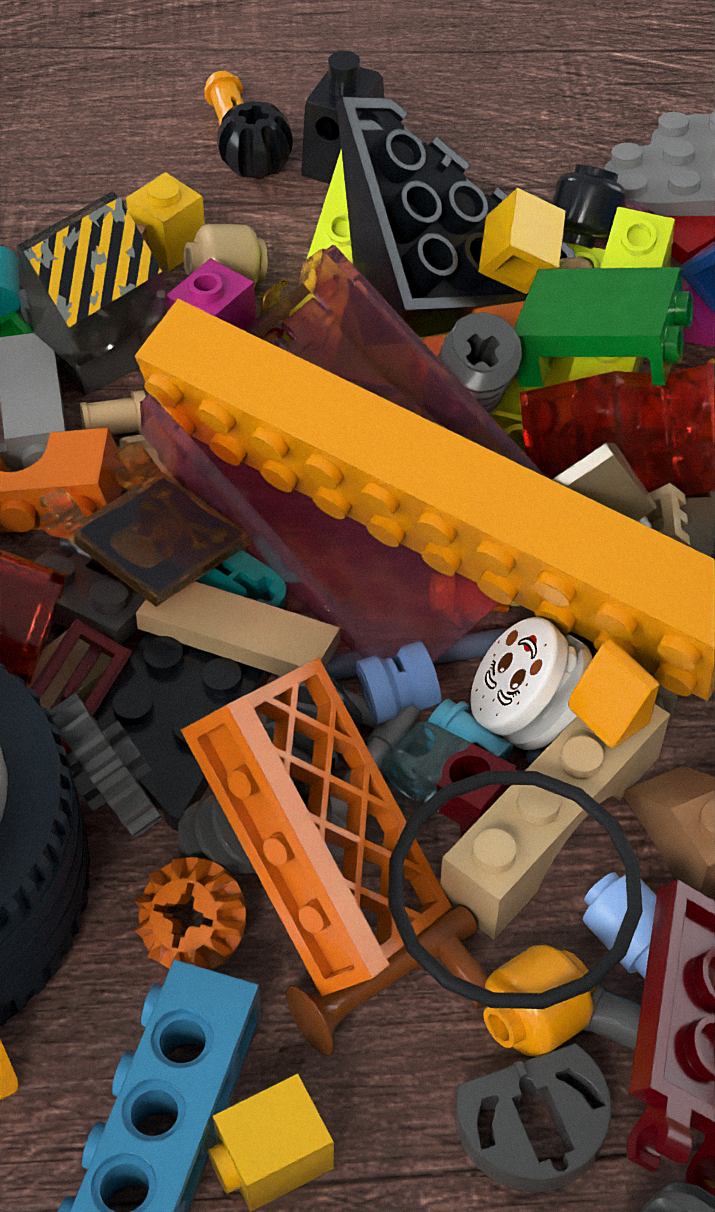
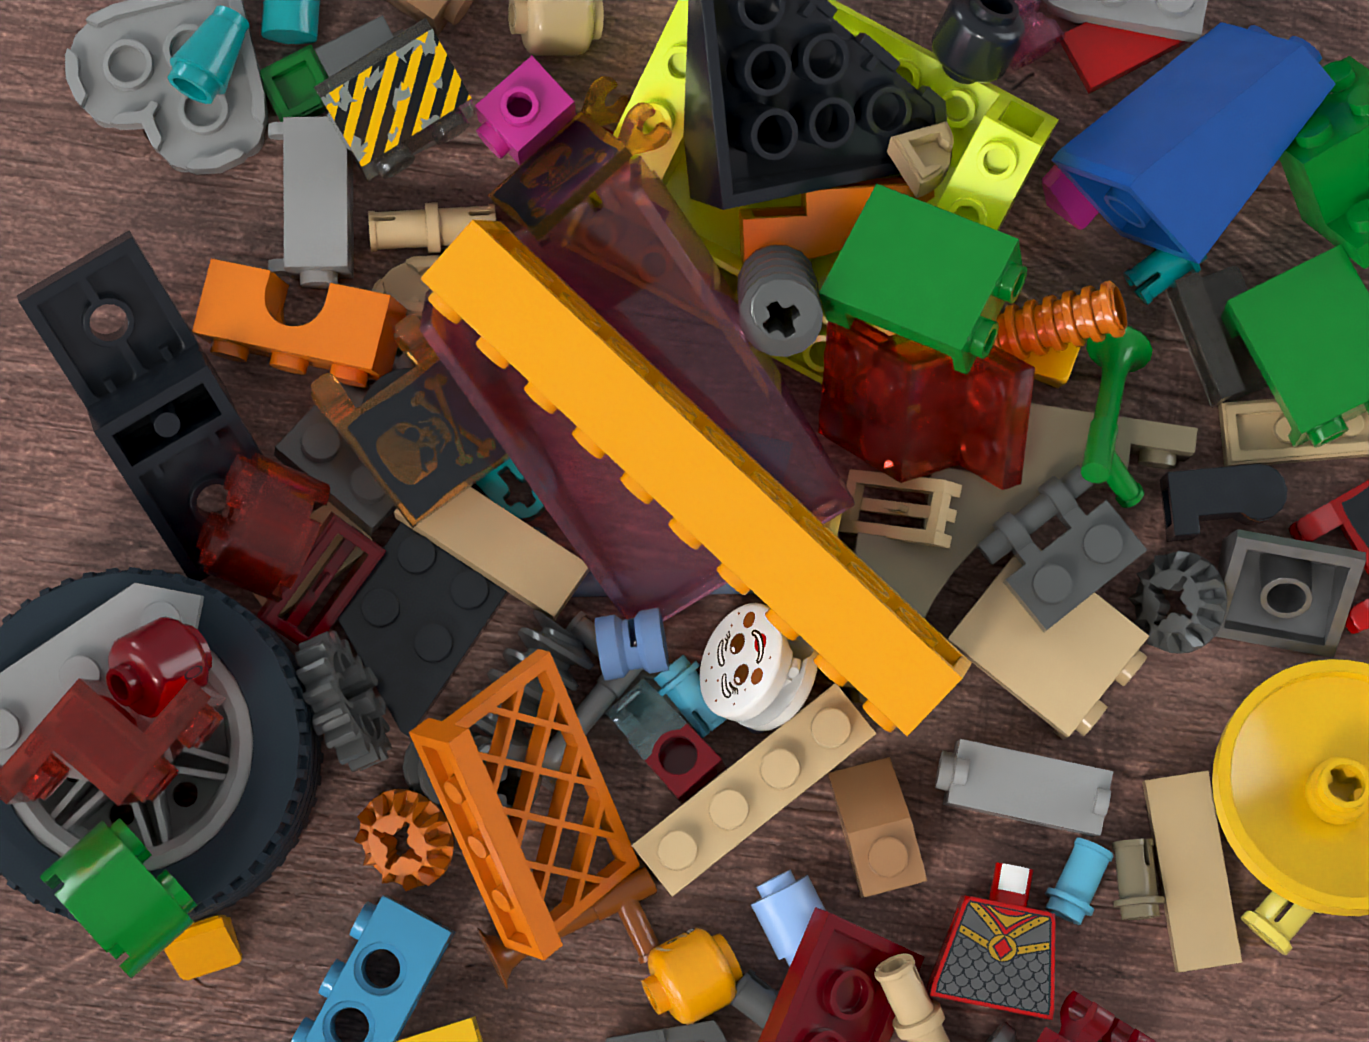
camera: 10 degrees right, 30 degrees up
(473, 991) = (773, 835): black piece -> none
(520, 239) = (874, 122): yellow brick -> none
(611, 482) = (868, 496): dark tan slope -> none
(614, 695) = (817, 727): light orange slope -> none

